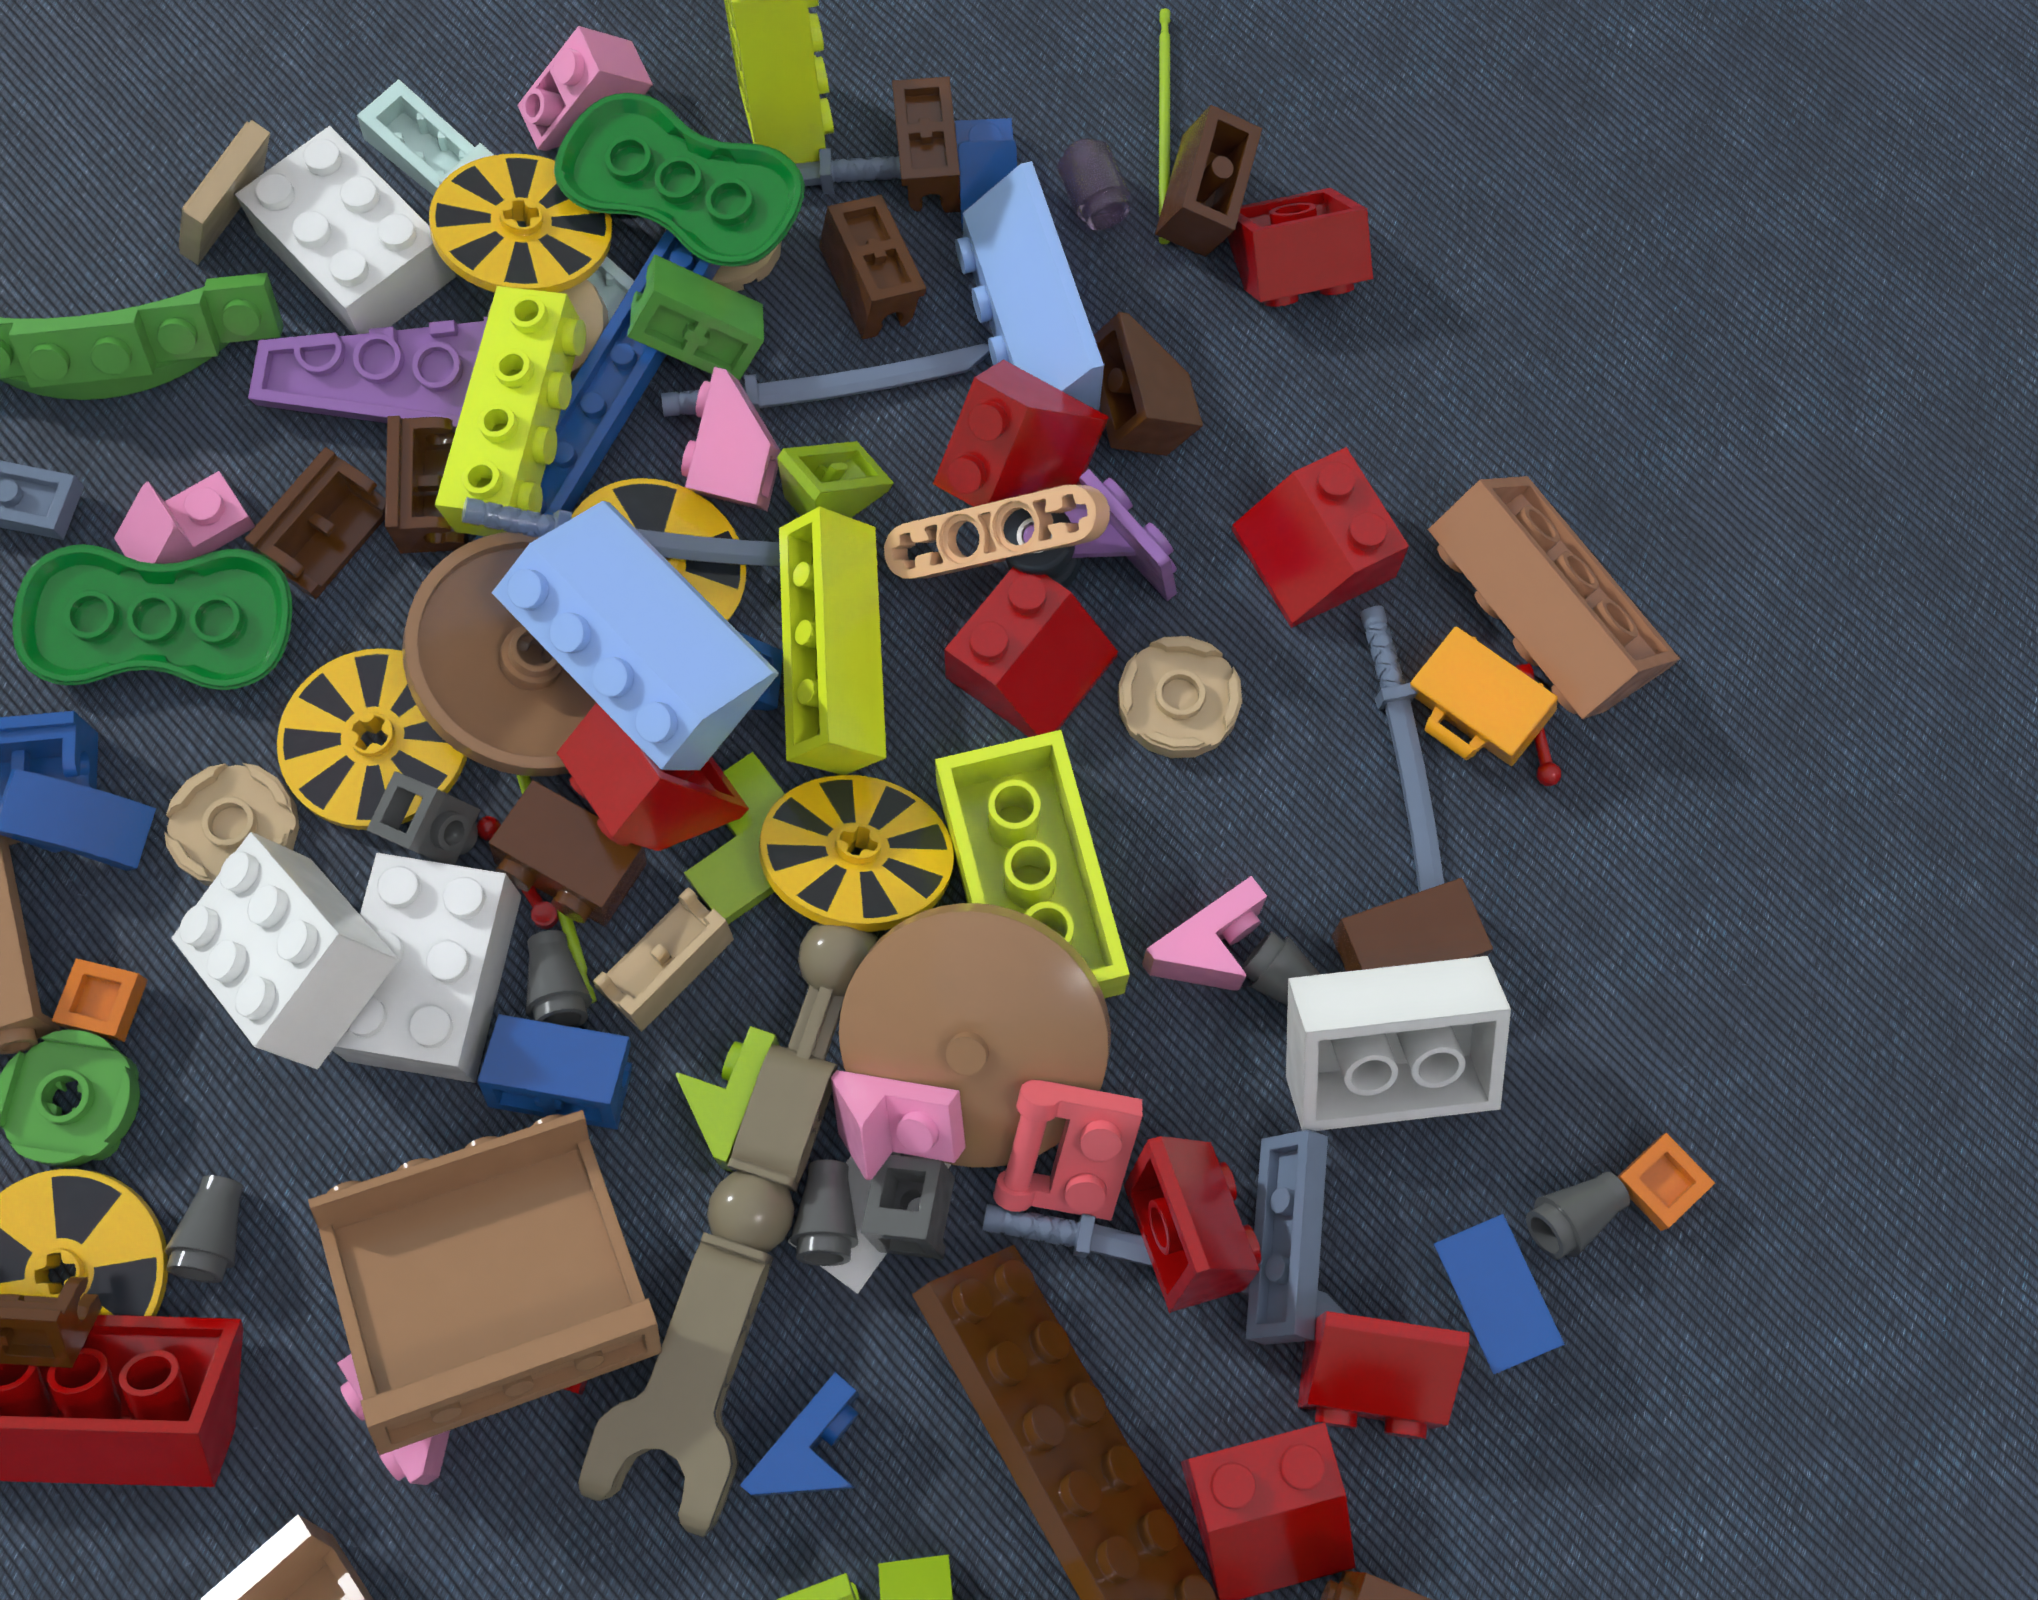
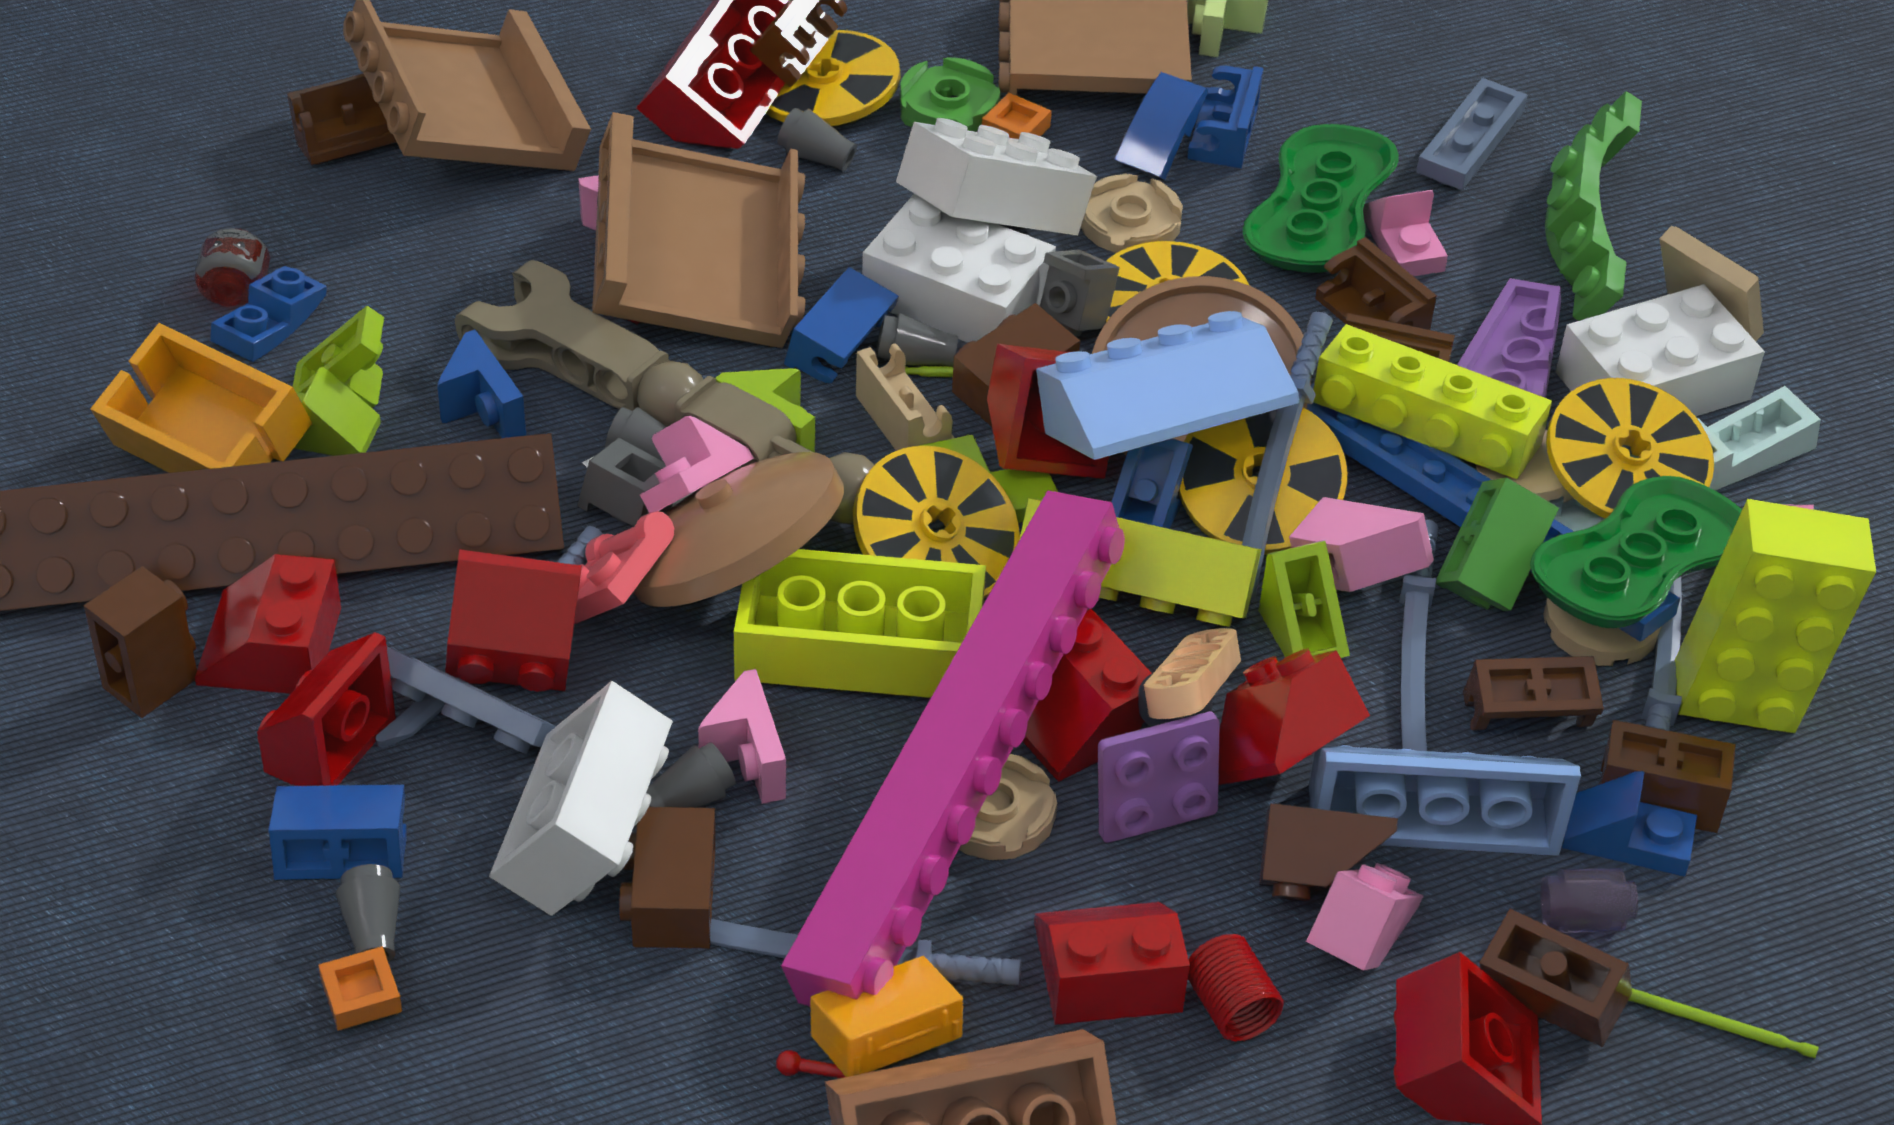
camera: 110 degrees right, 25 degrees down
(1181, 704) = (956, 752): none -> dark pink brick
(1207, 339) = (1364, 915): none -> bright pink slope
(1318, 426) = (1234, 987): none -> red piece

